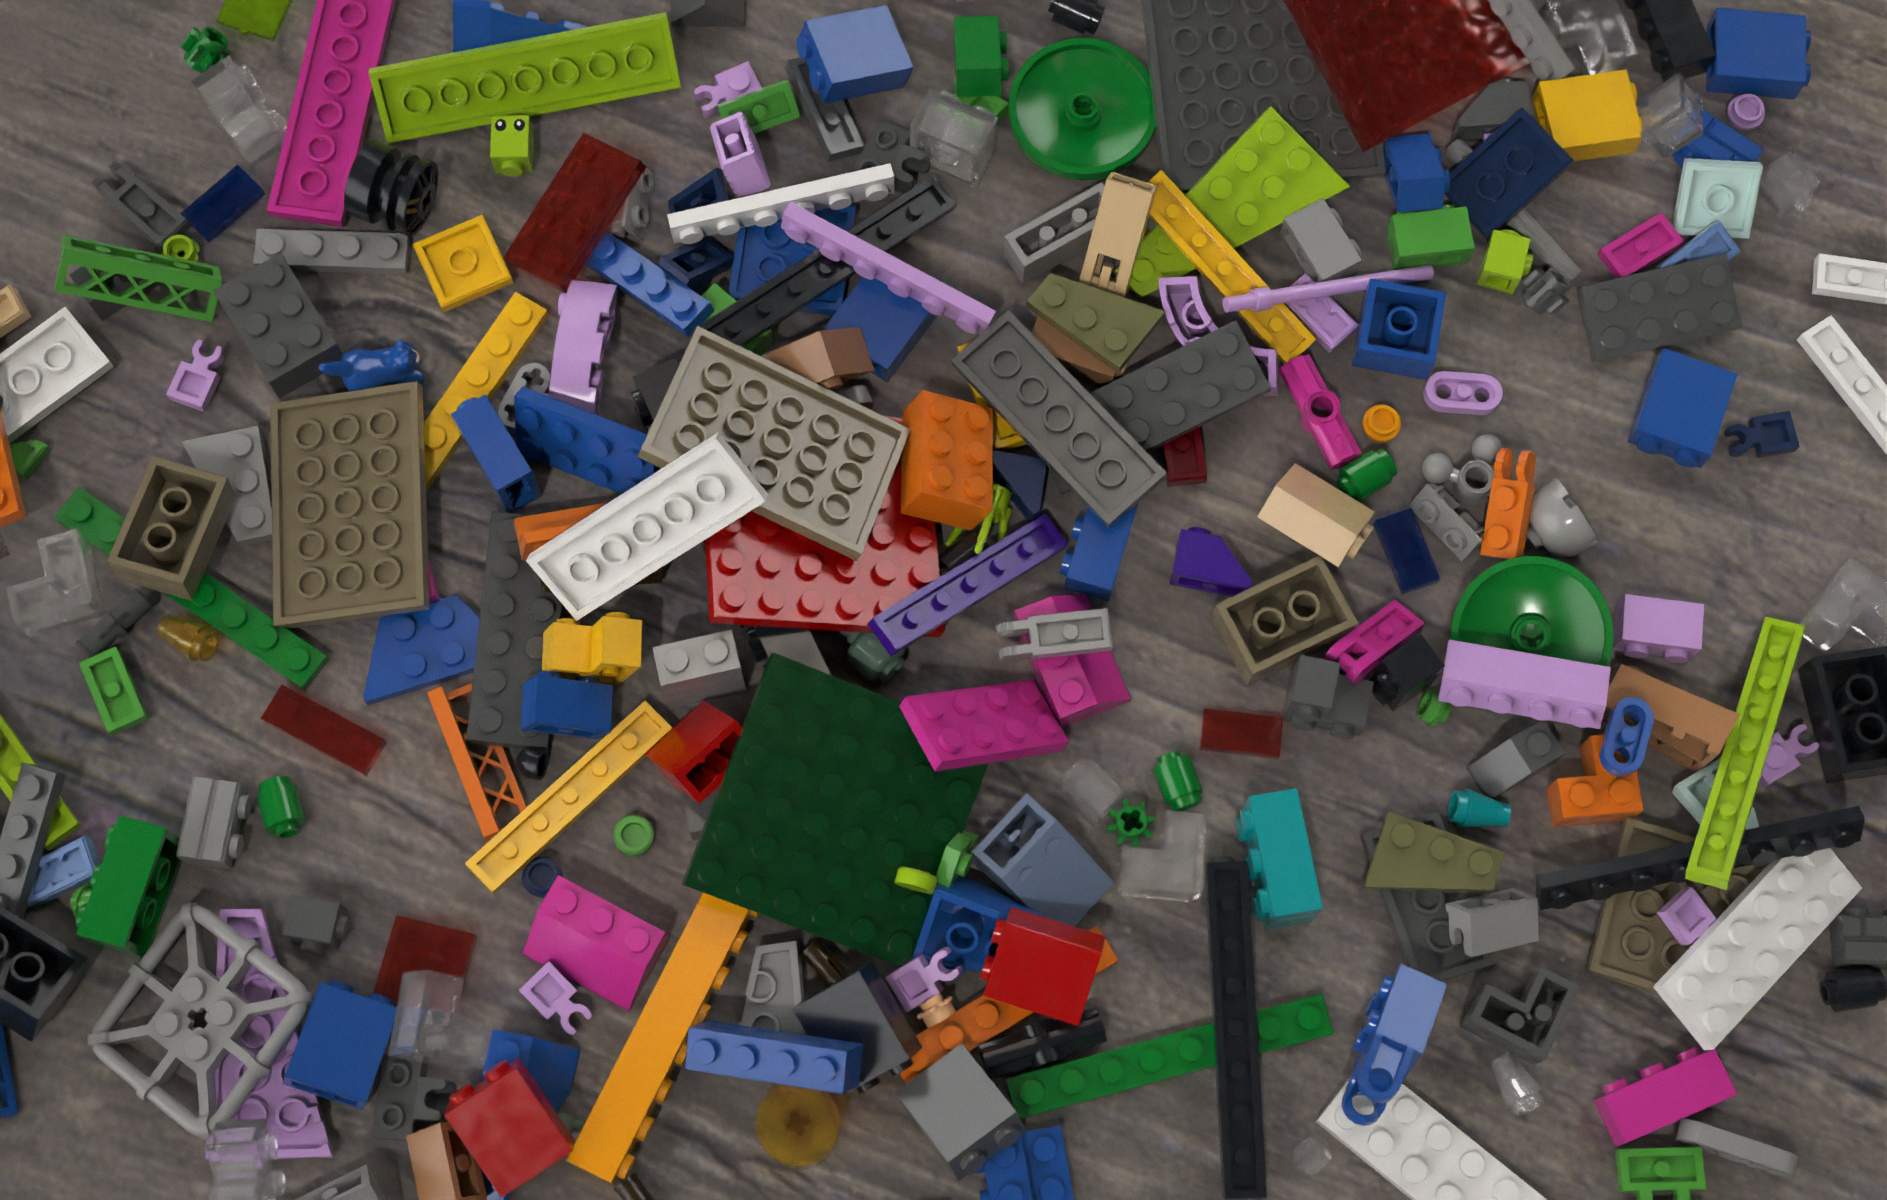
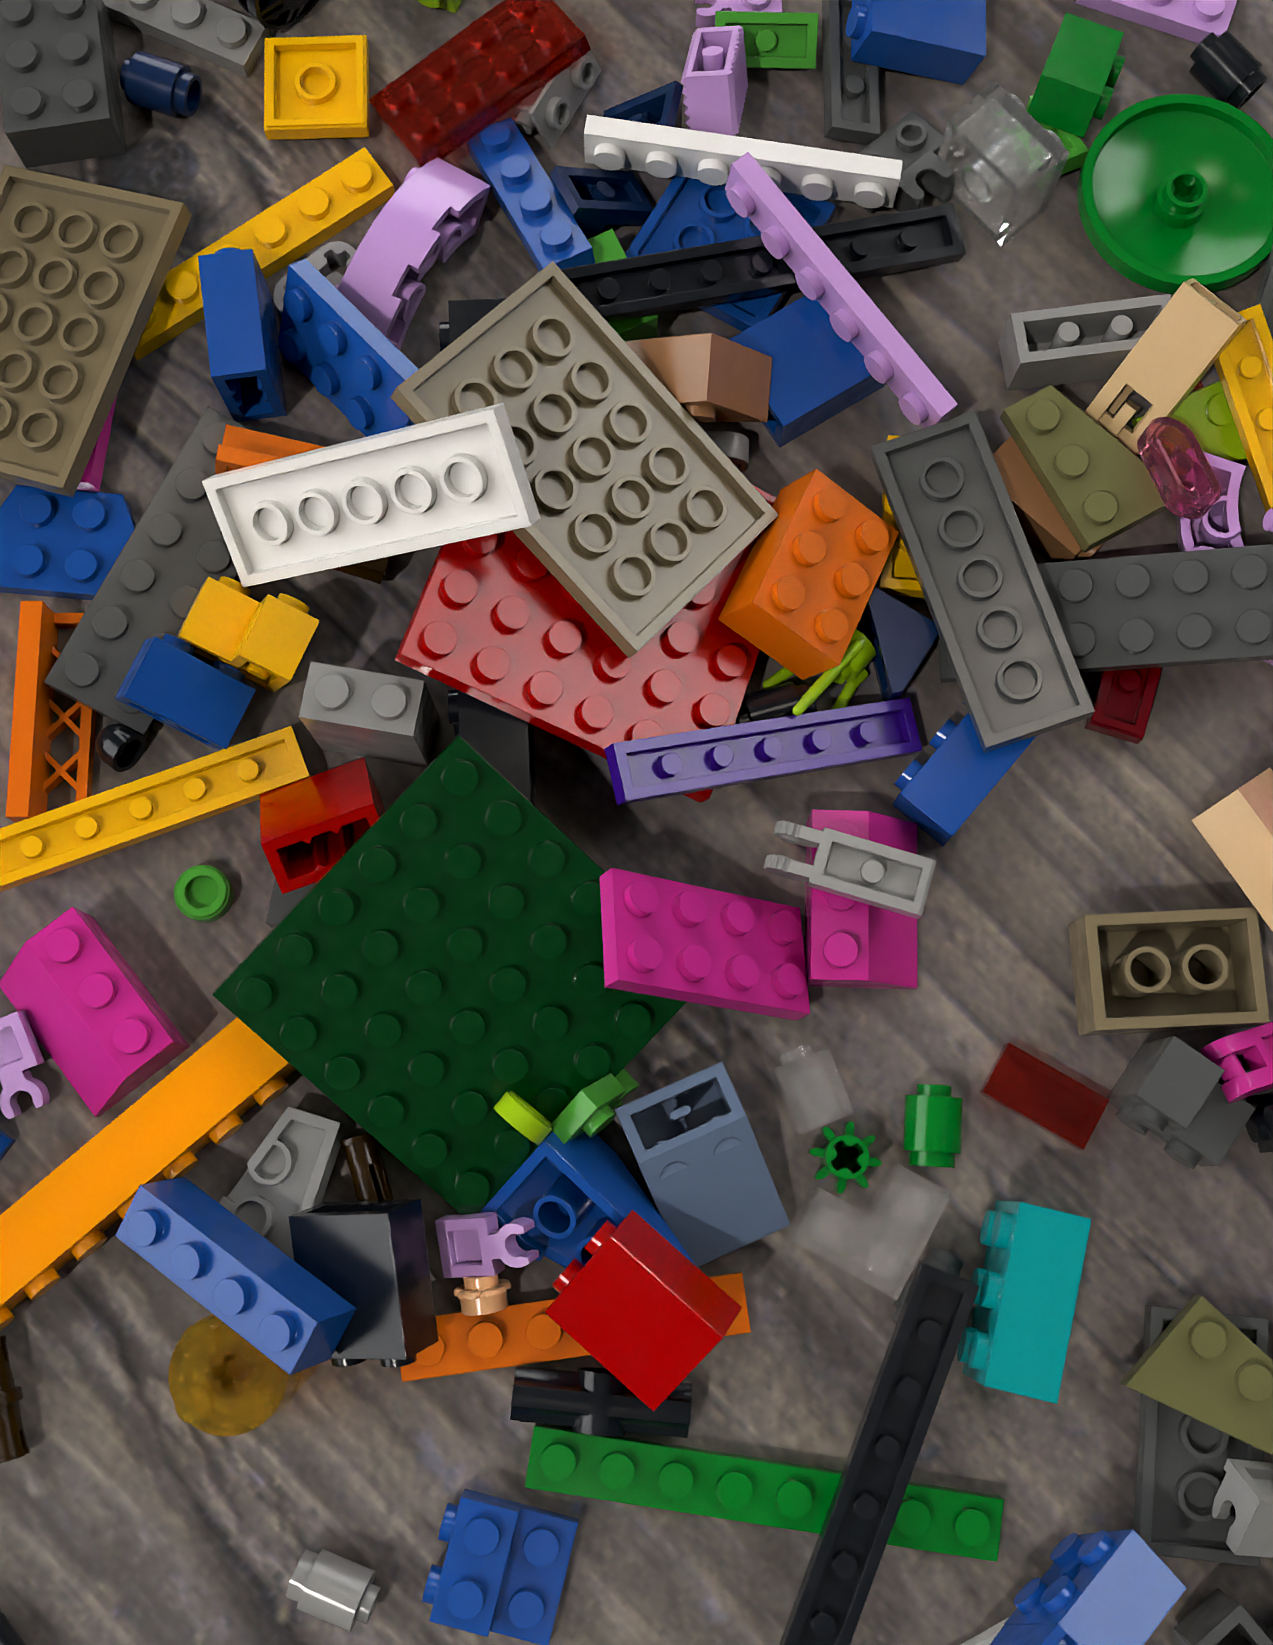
camera: 25 degrees right, 5 degrees up
(353, 304) = (160, 85): none -> dark blue brick
(376, 368) = (139, 168): blue animal -> none
(540, 876) = (64, 890): dark blue plate -> none
(871, 658) = (596, 796): sand green head -> none
(961, 1112) = (448, 1455): brick -> none
(1154, 295) = (1178, 468): none -> clear pink plate
(1207, 564) = (1095, 854): dark purple slope -> none

